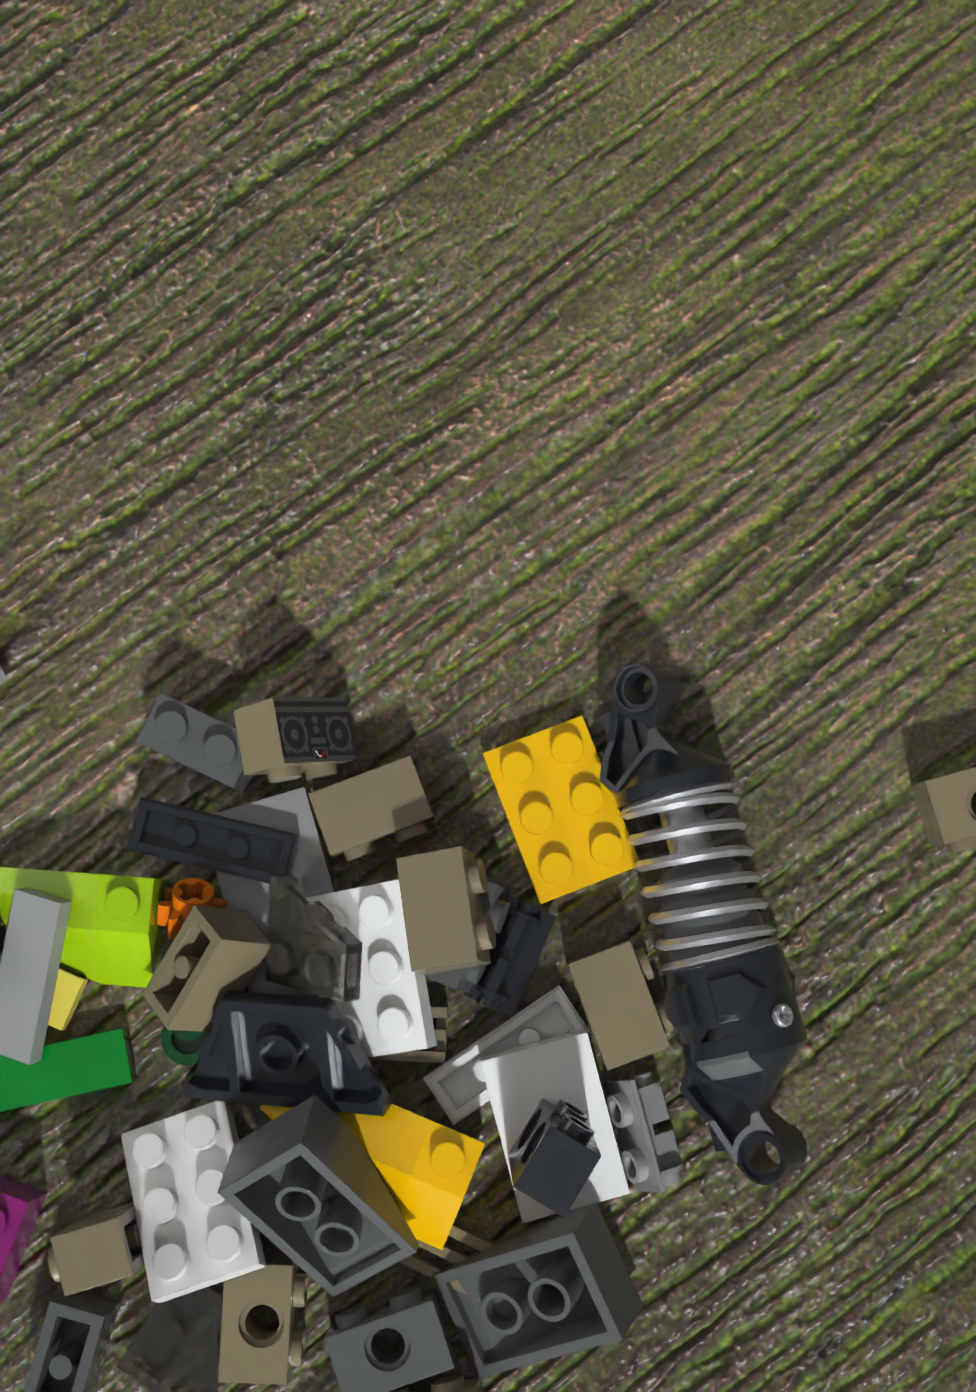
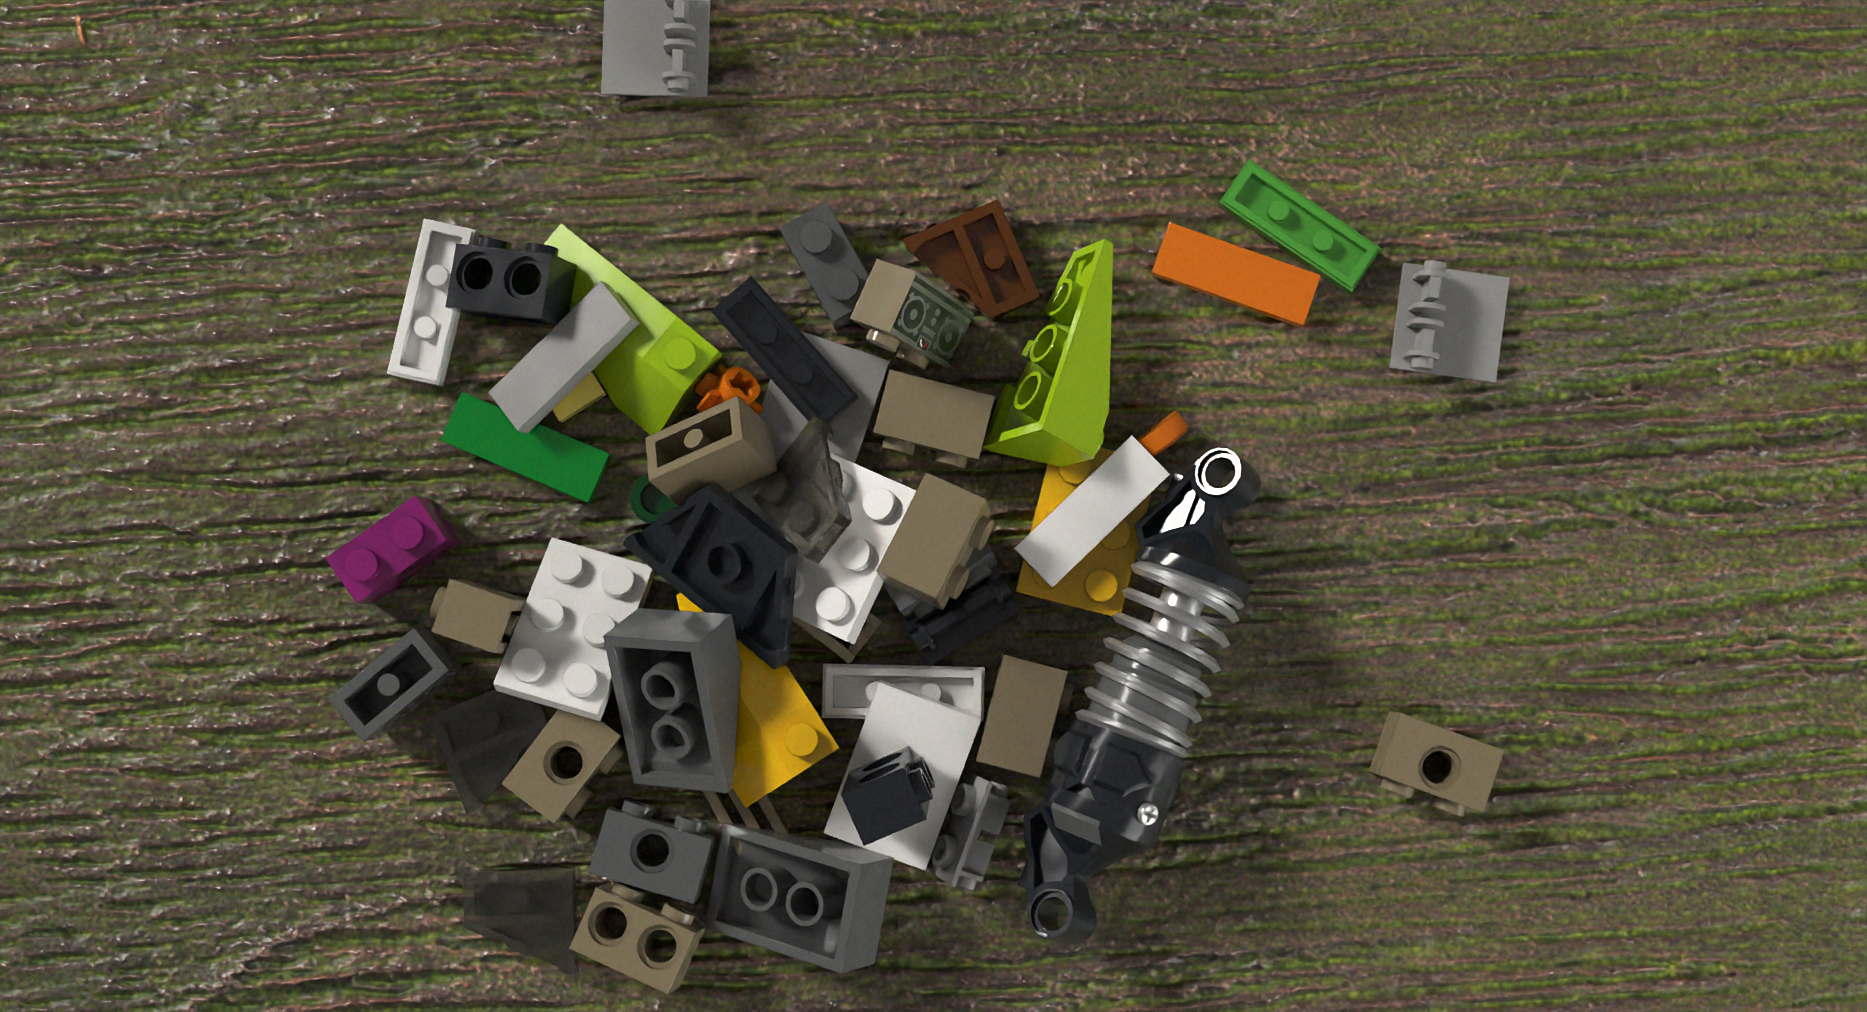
camera: 30 degrees right, 5 degrees up
(320, 654) = (978, 260): none -> reddish brown wing
(463, 709) = (1065, 388): none -> lime wedge
(537, 523) = (1235, 275): none -> orange tile
(556, 794) = (1091, 511): none -> white tile
(560, 450) = (1299, 227): none -> bright green tile
(569, 691) = (1163, 433): none -> orange tile
(733, 442) = (1449, 322): none -> light grey hinge

